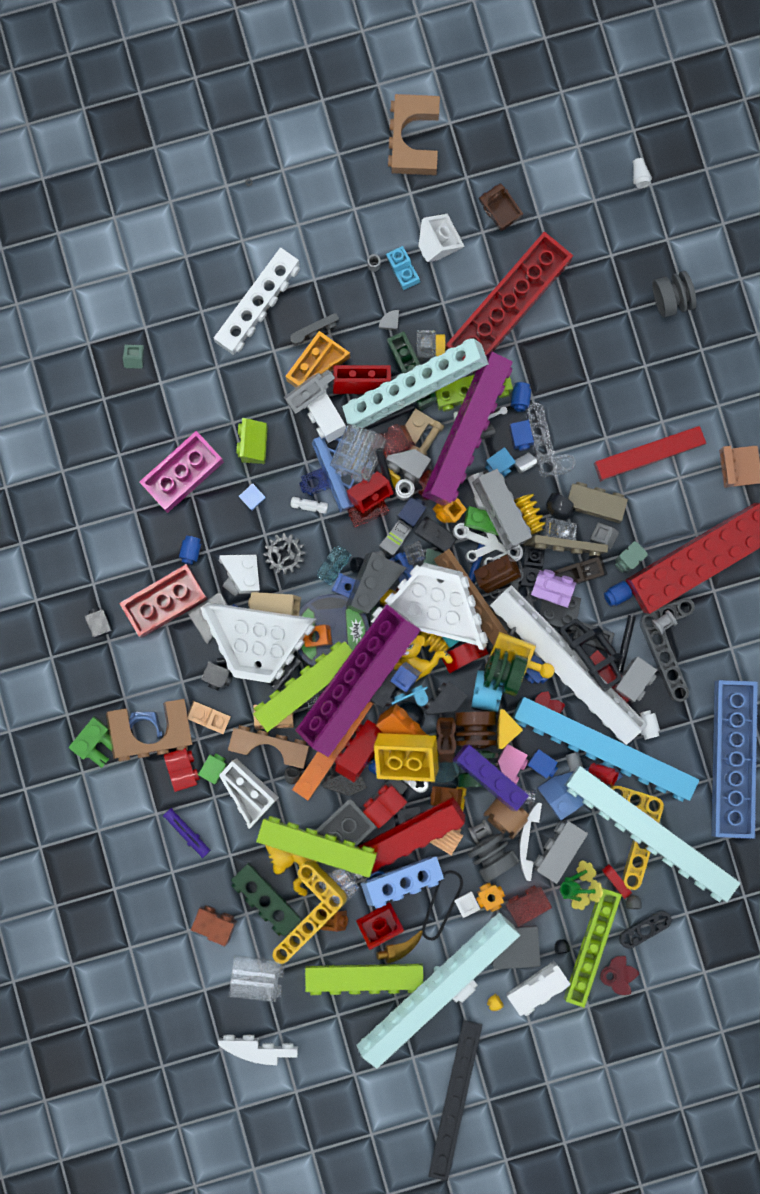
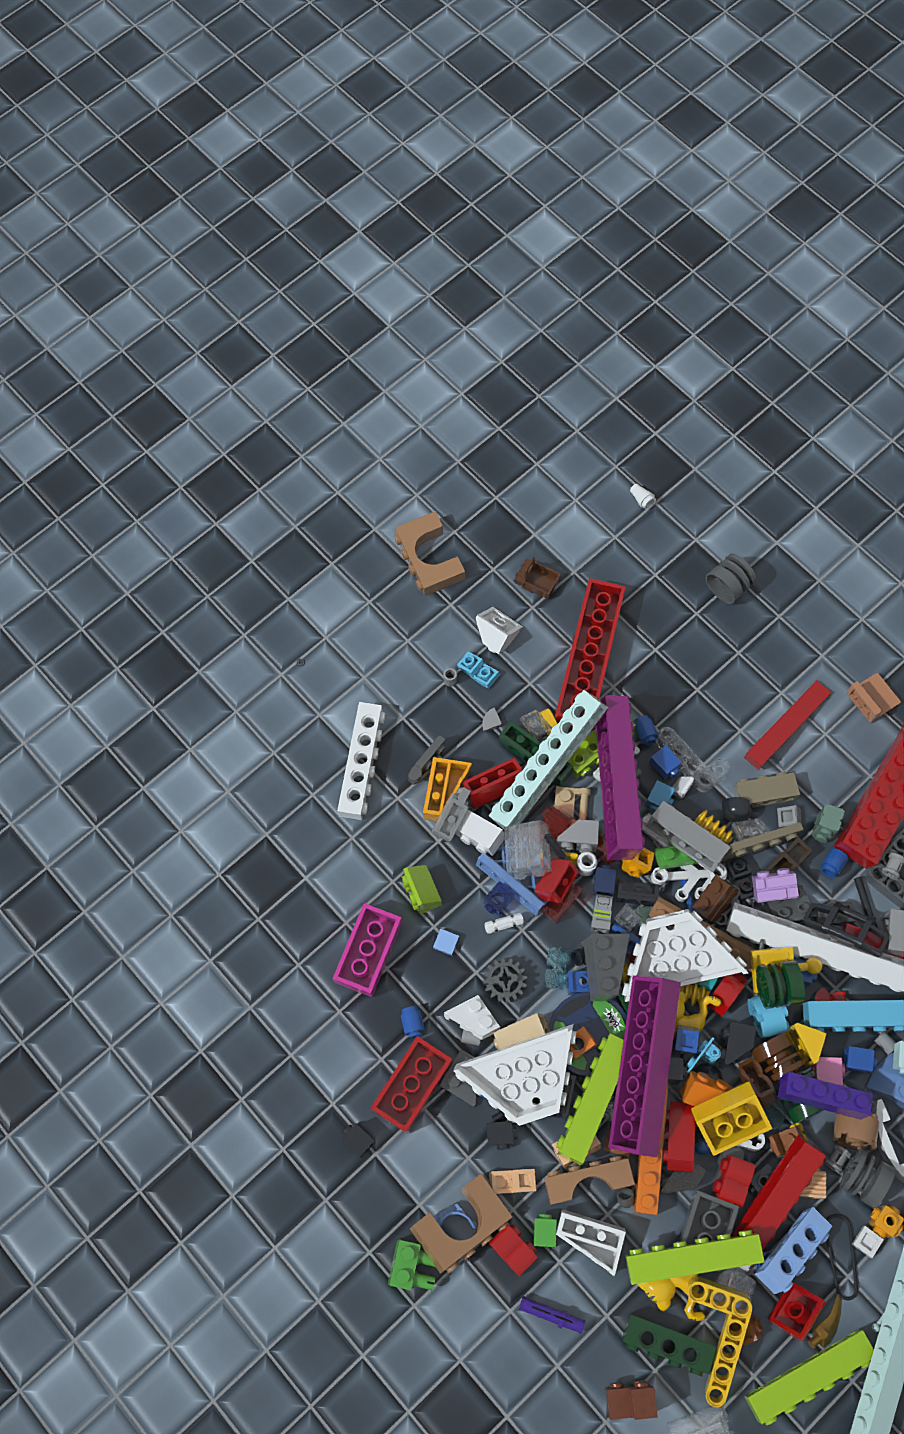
camera: 25 degrees left, 15 degrees down
(133, 356) = (268, 866): sand green slope -> none

